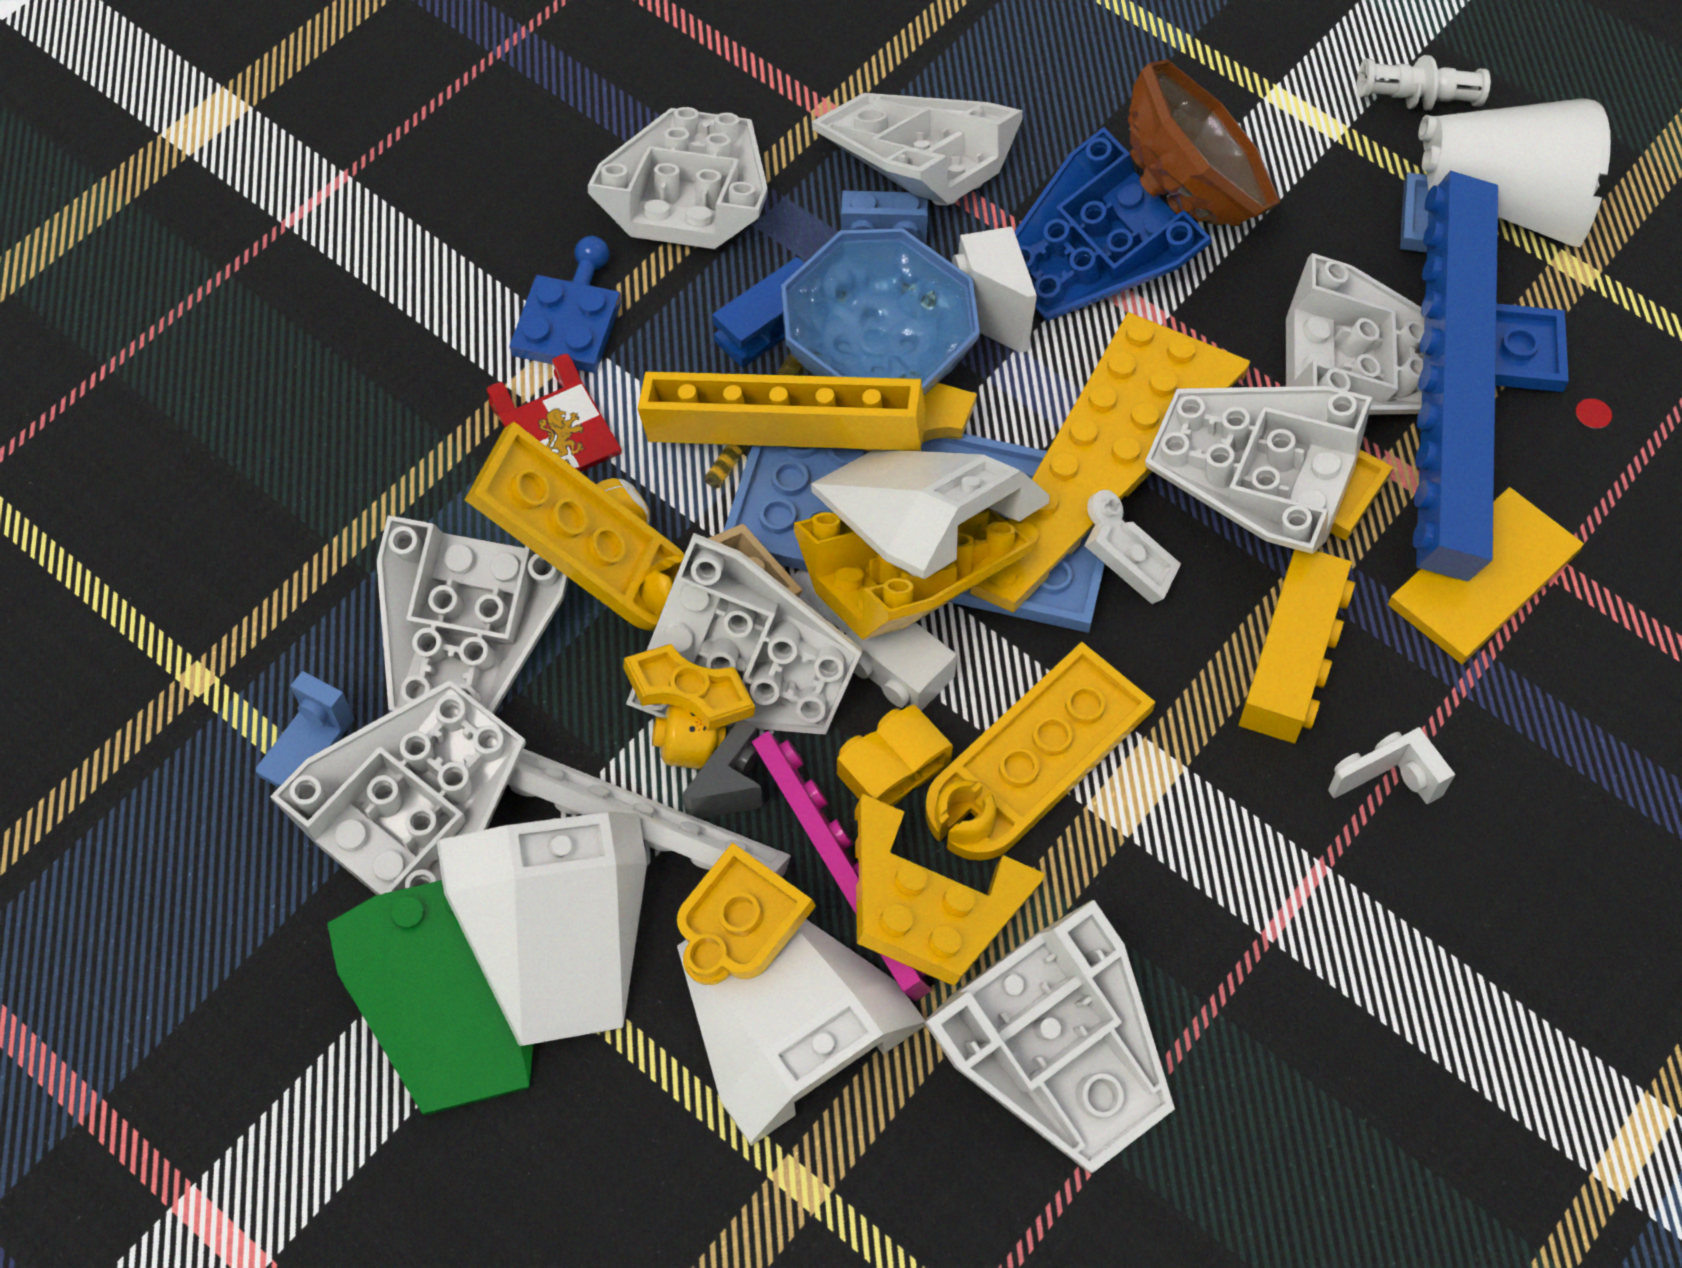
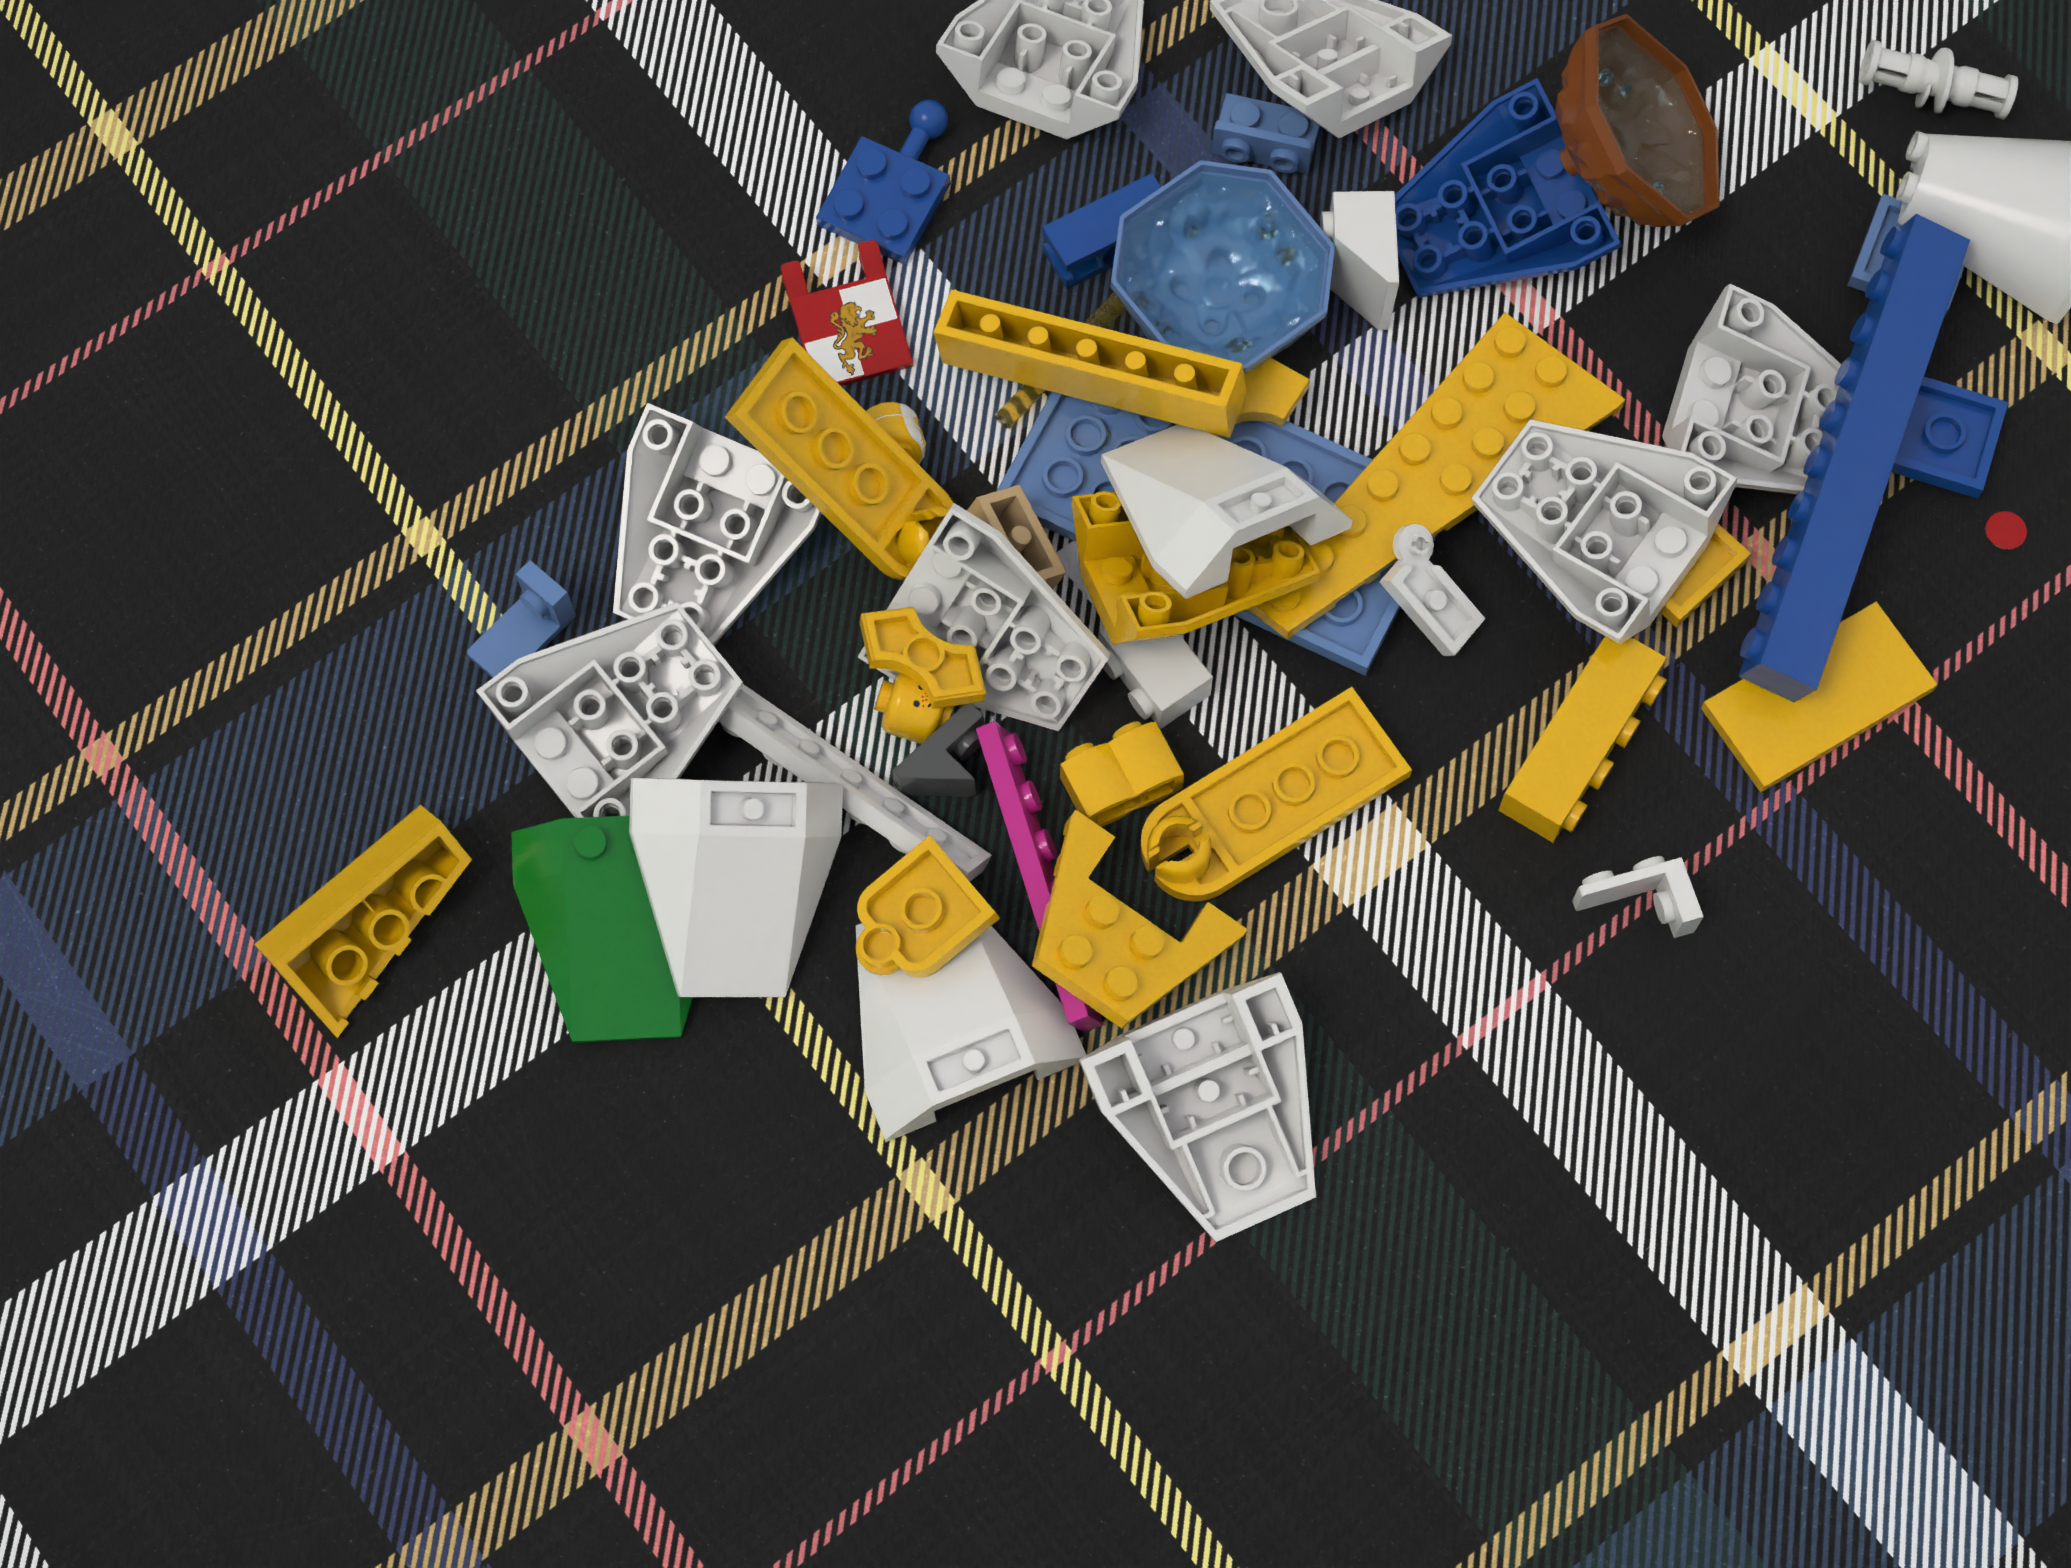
camera: 15 degrees right, 10 degrees up
(184, 1046) = (364, 916): none -> yellow wedge

